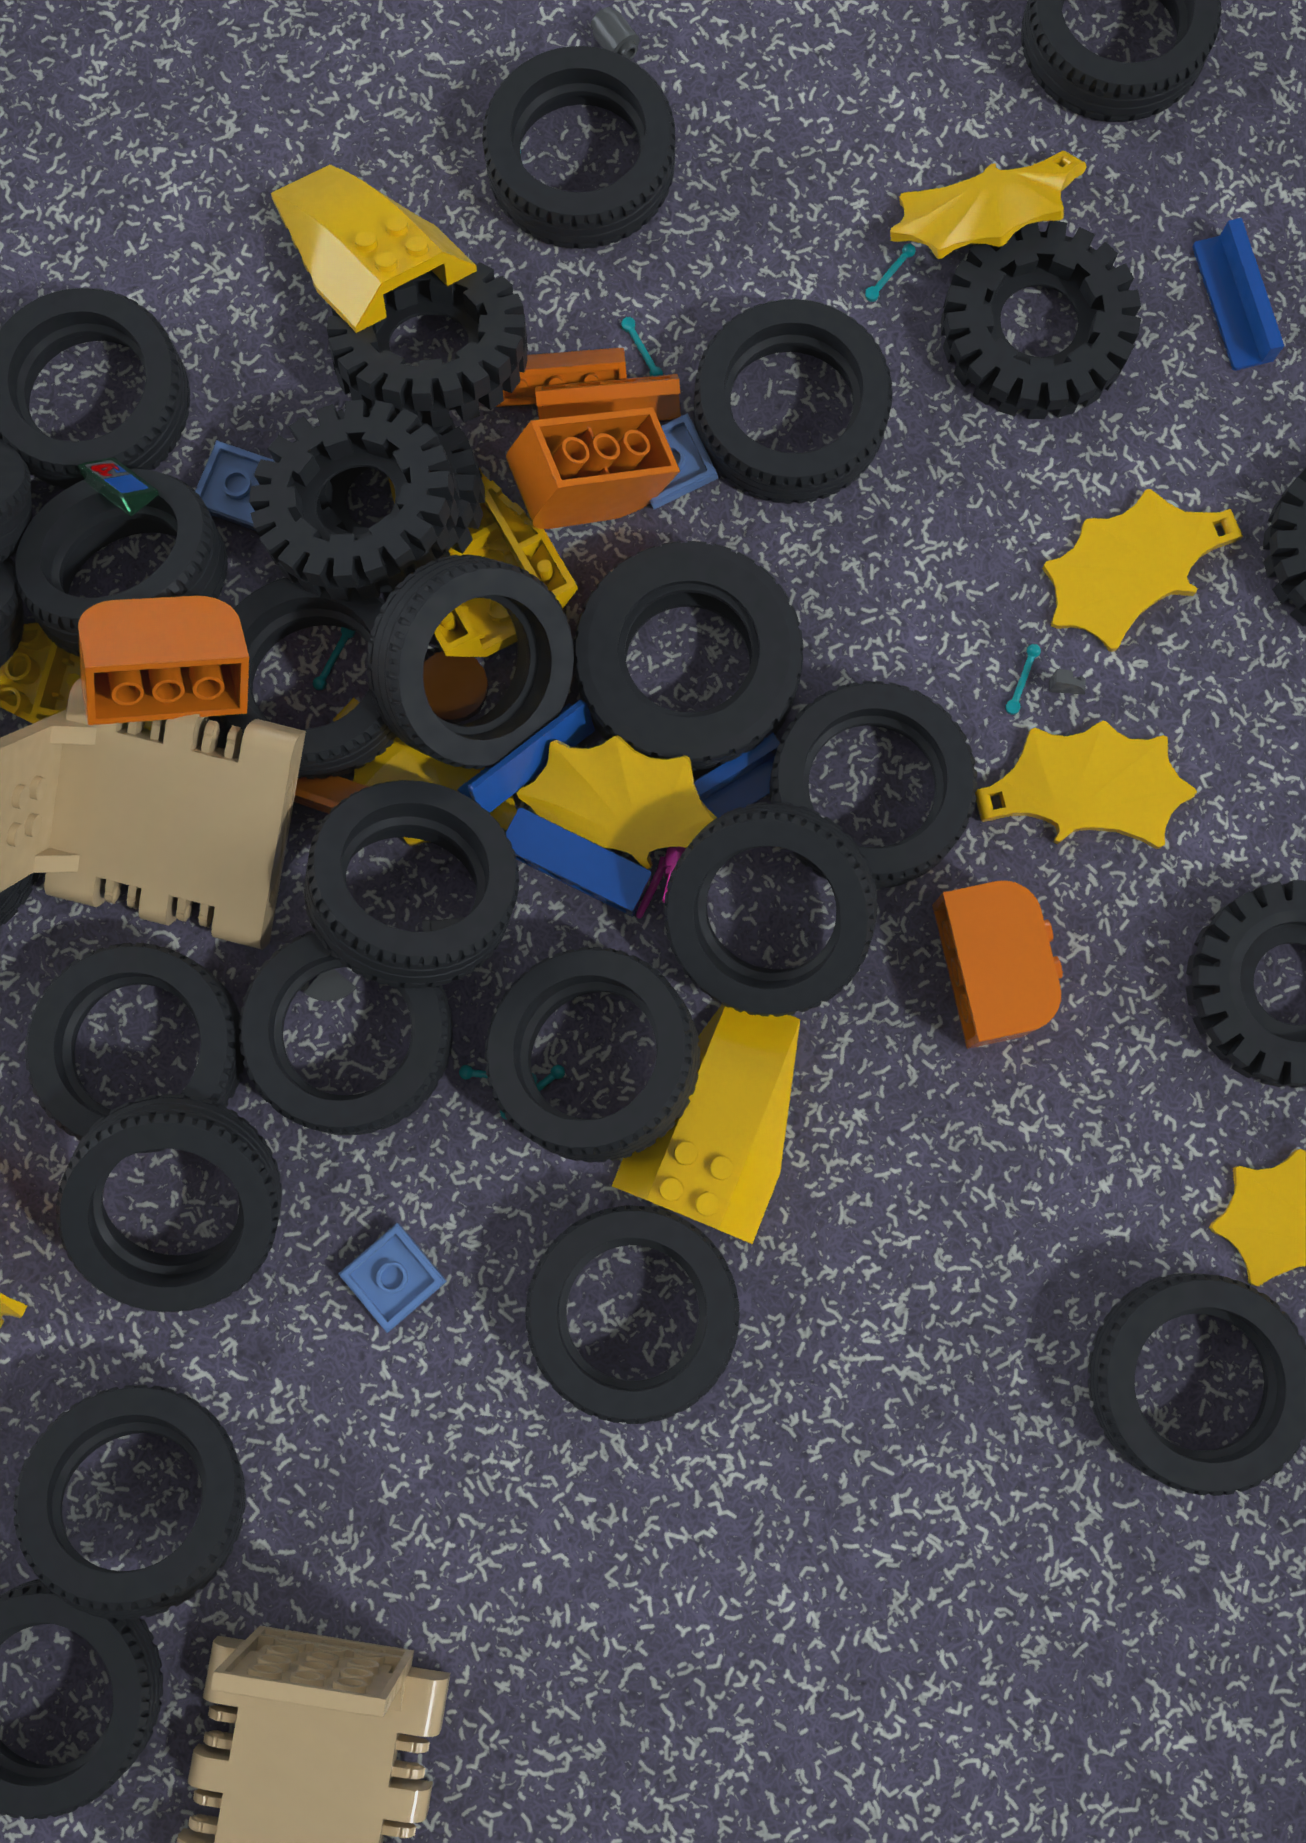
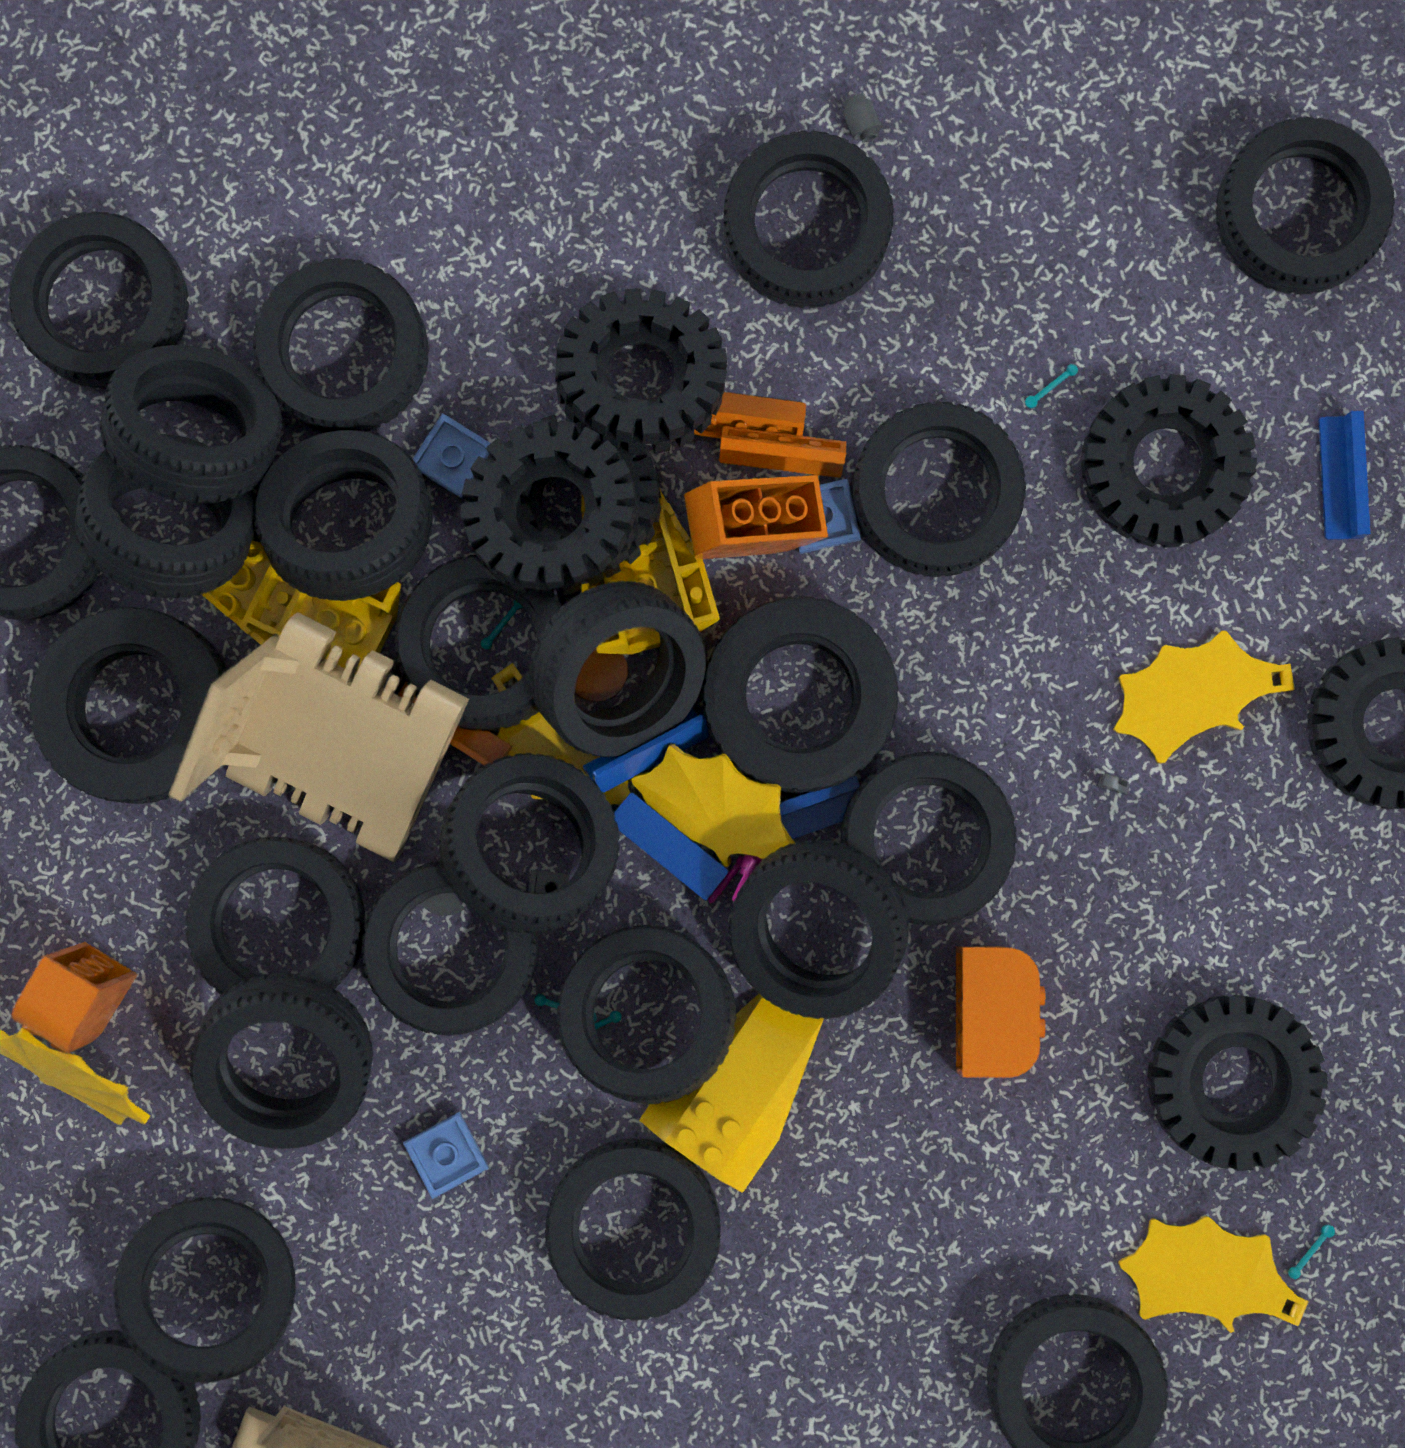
camera: 10 degrees right, 5 degrees up
(118, 484) = (355, 447): clear green slope -> none
(162, 659) = (365, 620): orange brick -> none
(362, 243) = (602, 269): yellow wedge -> none
(628, 325) = (815, 384): teal hinge -> none
(987, 205) = (1146, 351): yellow animal -> none
(1013, 706) = (1063, 792): teal hinge -> none
(1091, 784) = (1113, 874): yellow animal -> none

